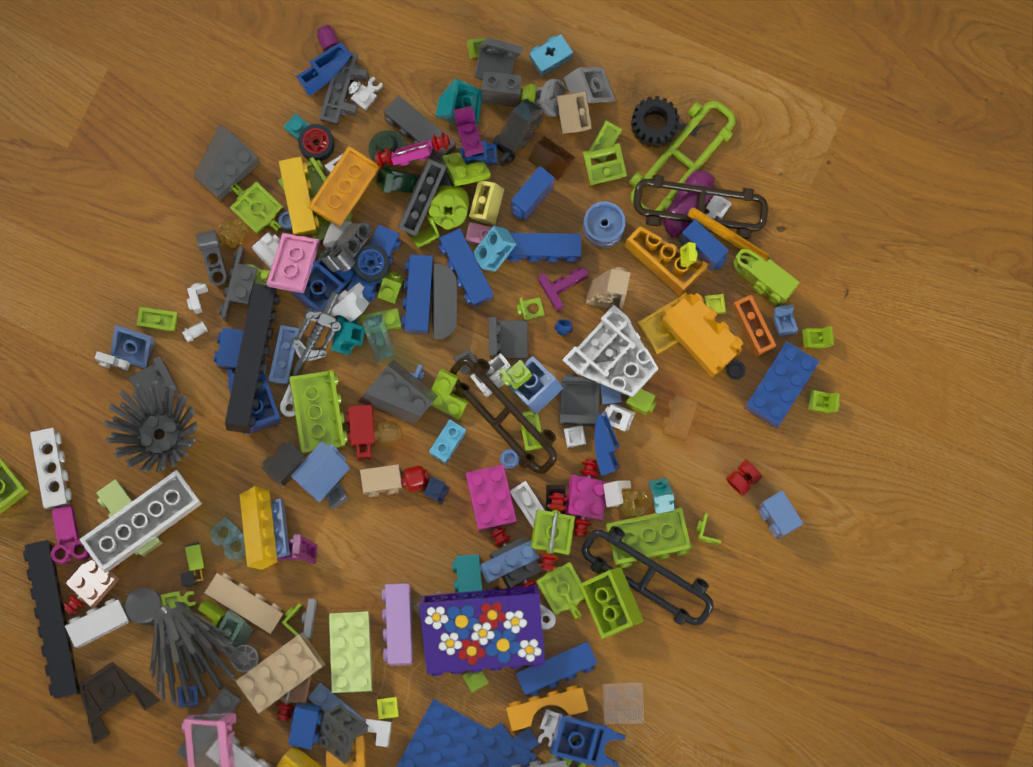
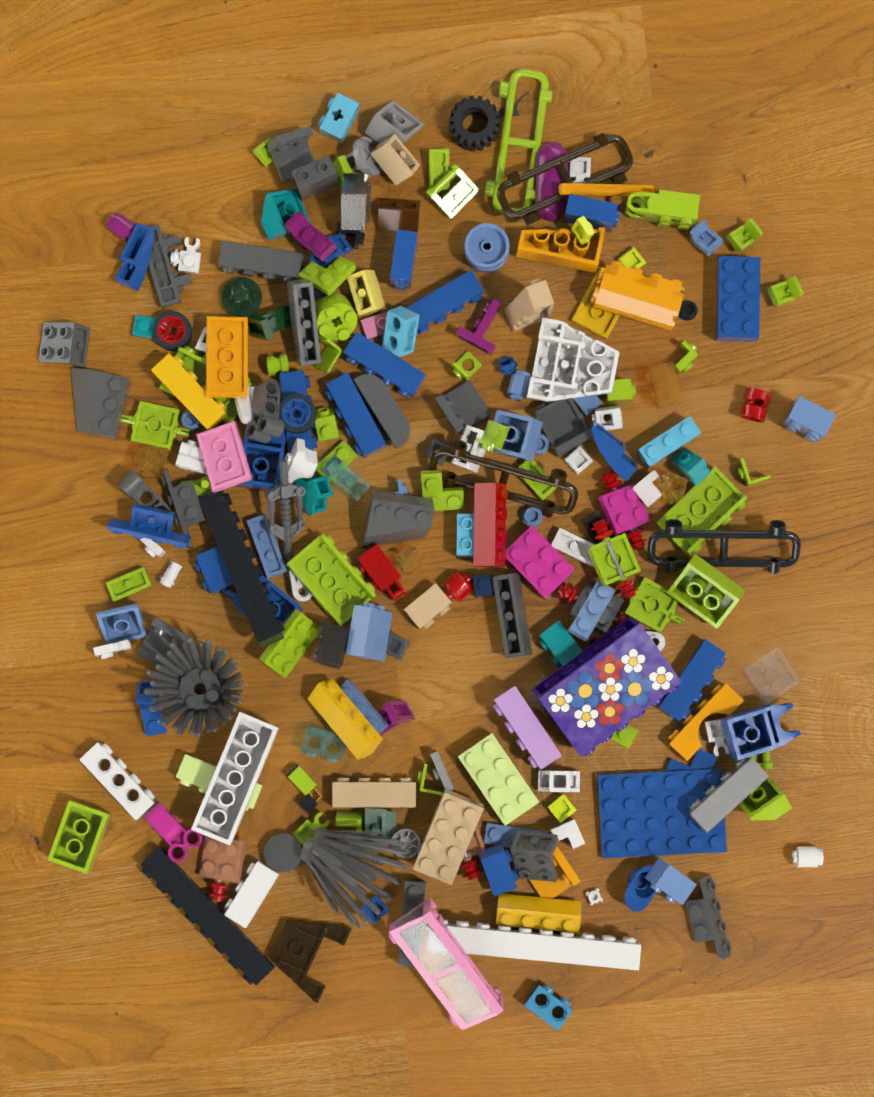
camera: 30 degrees left, 5 degrees up
(105, 431) = (150, 719): none -> blue bracket
(202, 281) = (150, 524): none -> blue bracket
(226, 103) = (64, 343): none -> dark grey bracket
(245, 447) = (298, 636): none -> lime plate
(380, 217) = (275, 365): none -> lime wheel
(399, 684) = (559, 781): none -> white brick
(416, 151) = (271, 286): plate -> none
(443, 527) = (512, 615): none -> dark grey brick
(469, 443) = (490, 524): none -> brick
(552, 407) = (542, 445): none -> medium blue tile
(562, 347) = (519, 385): none -> medium blue brick
(655, 465) = (668, 442): none -> medium azure brick
(709, 410) = (685, 363): none -> lime bracket
(754, 326) = (680, 260): orange brick -> none

